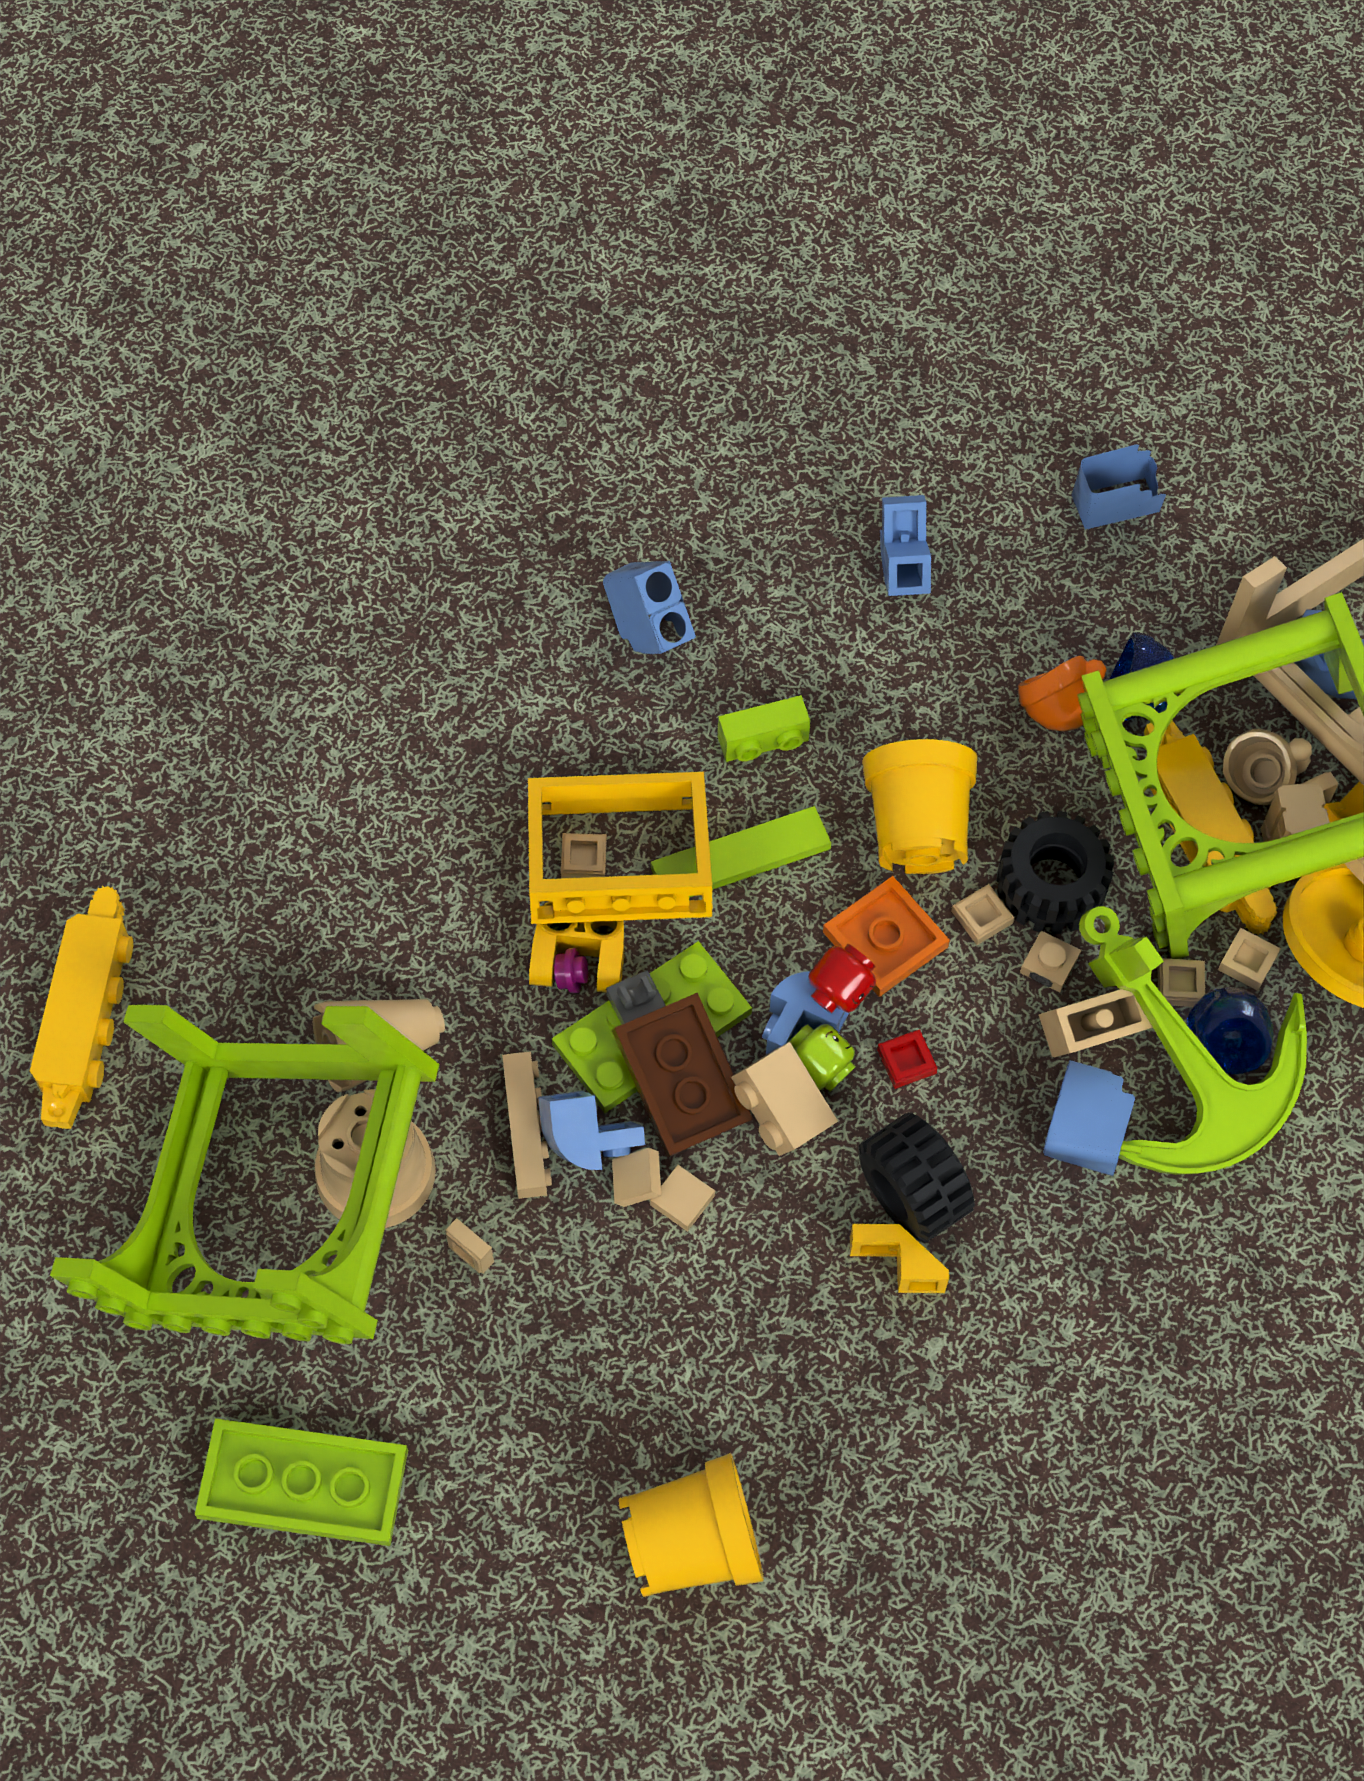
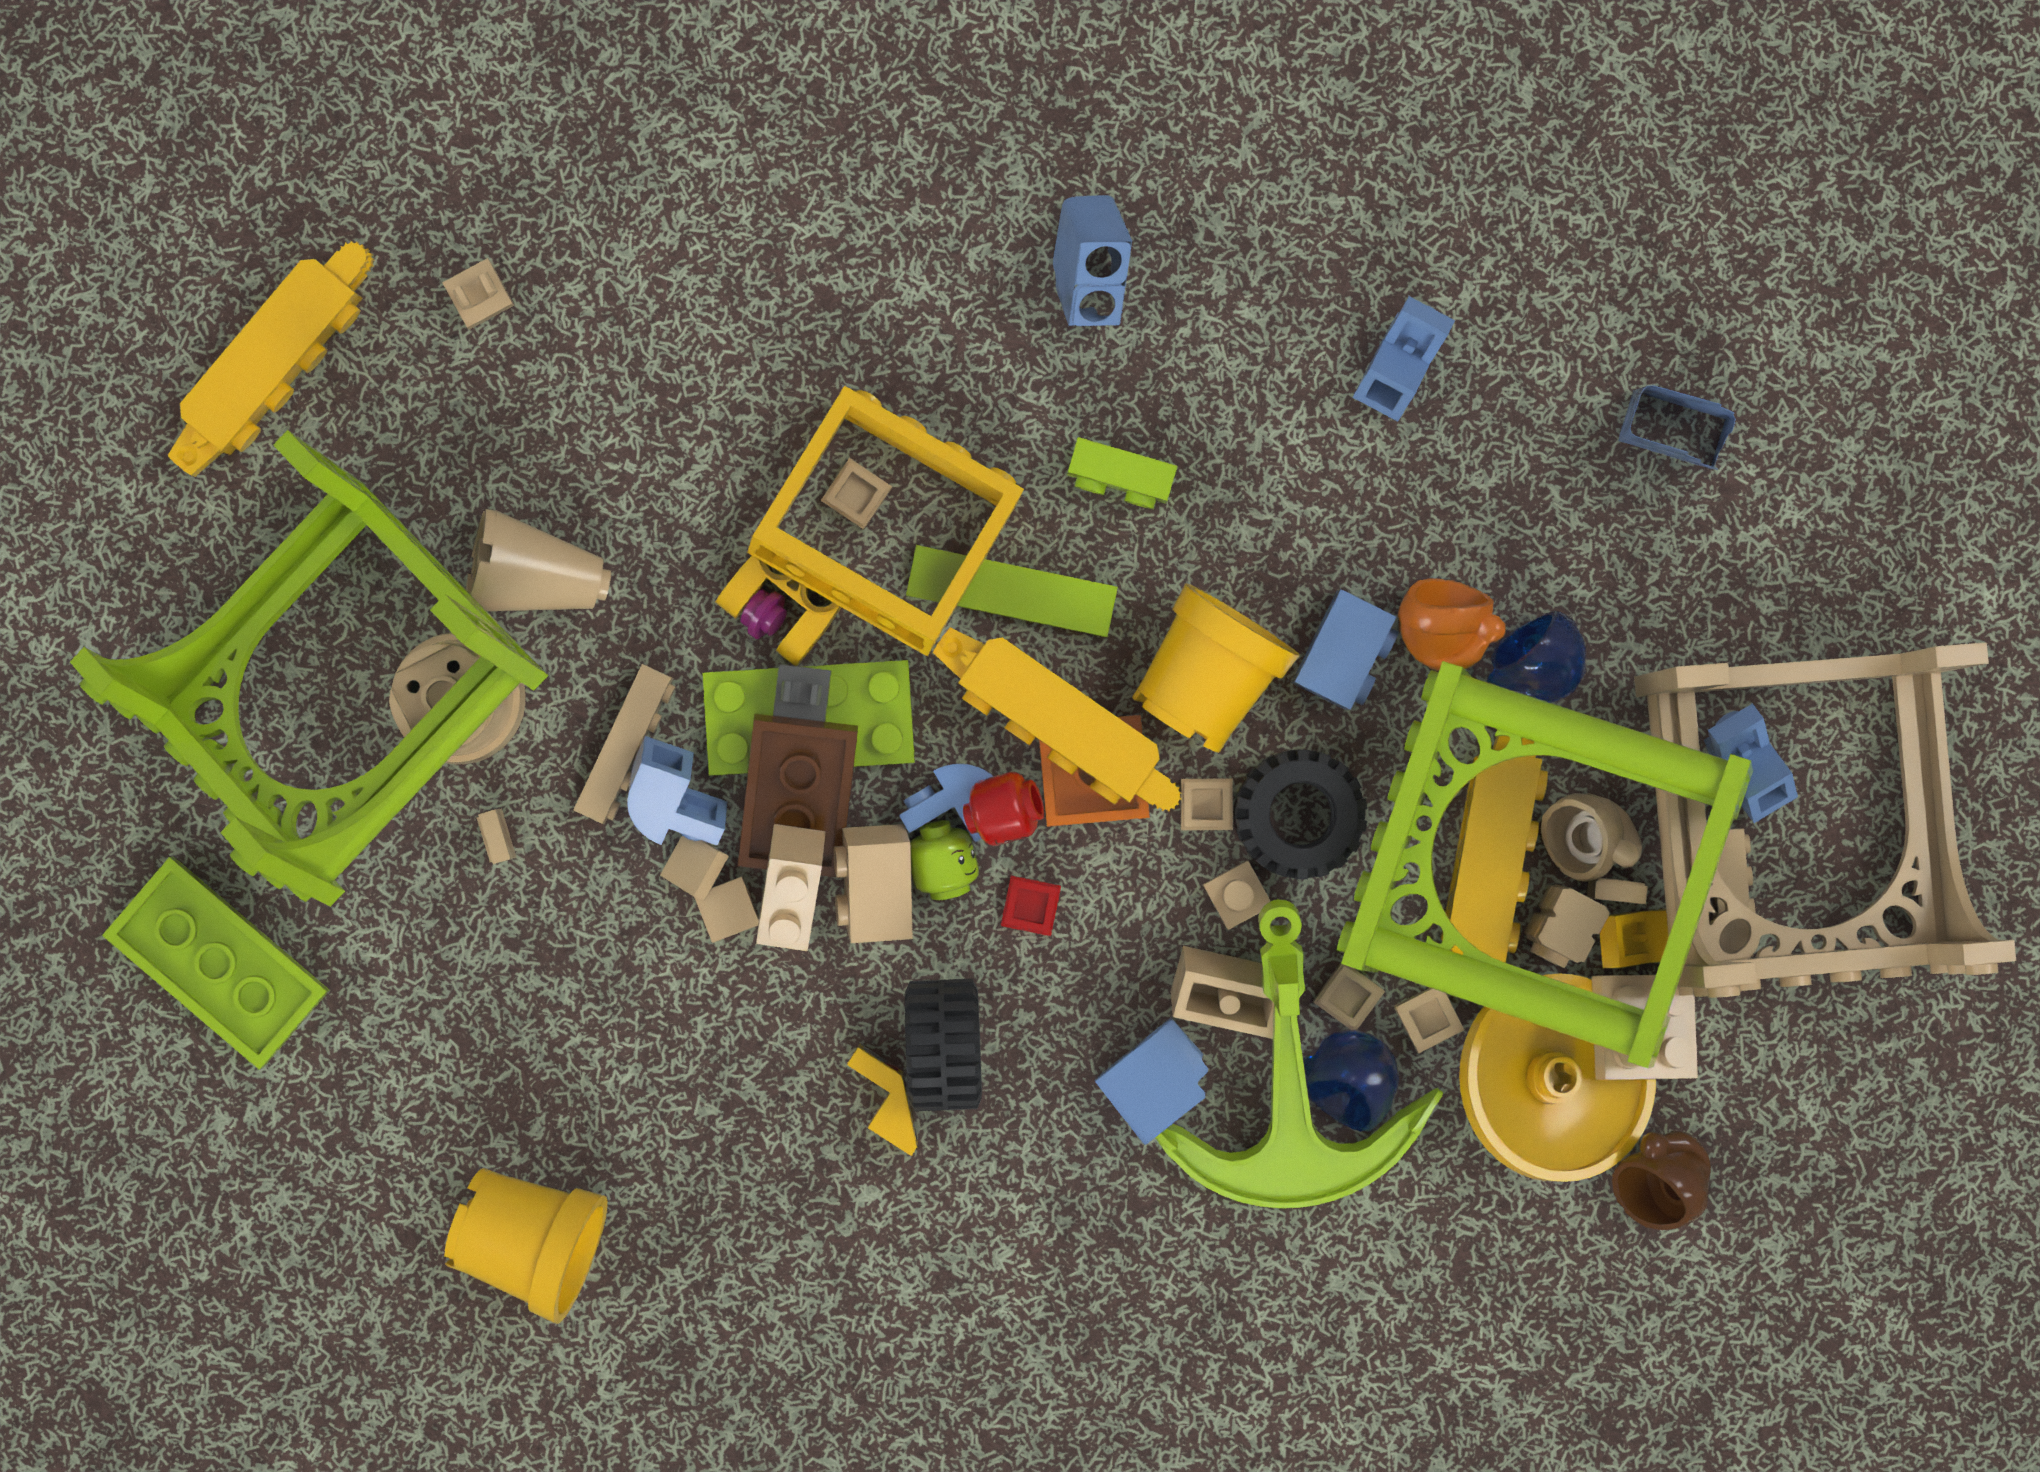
camera: 30 degrees right, 25 degrees up
(216, 882) = (478, 293): none -> tan tile
(722, 1137) = (790, 887): none -> tan brick
(839, 902) = (1059, 716): none -> yellow hinge
(1005, 752) = (1345, 650): none -> medium blue brick

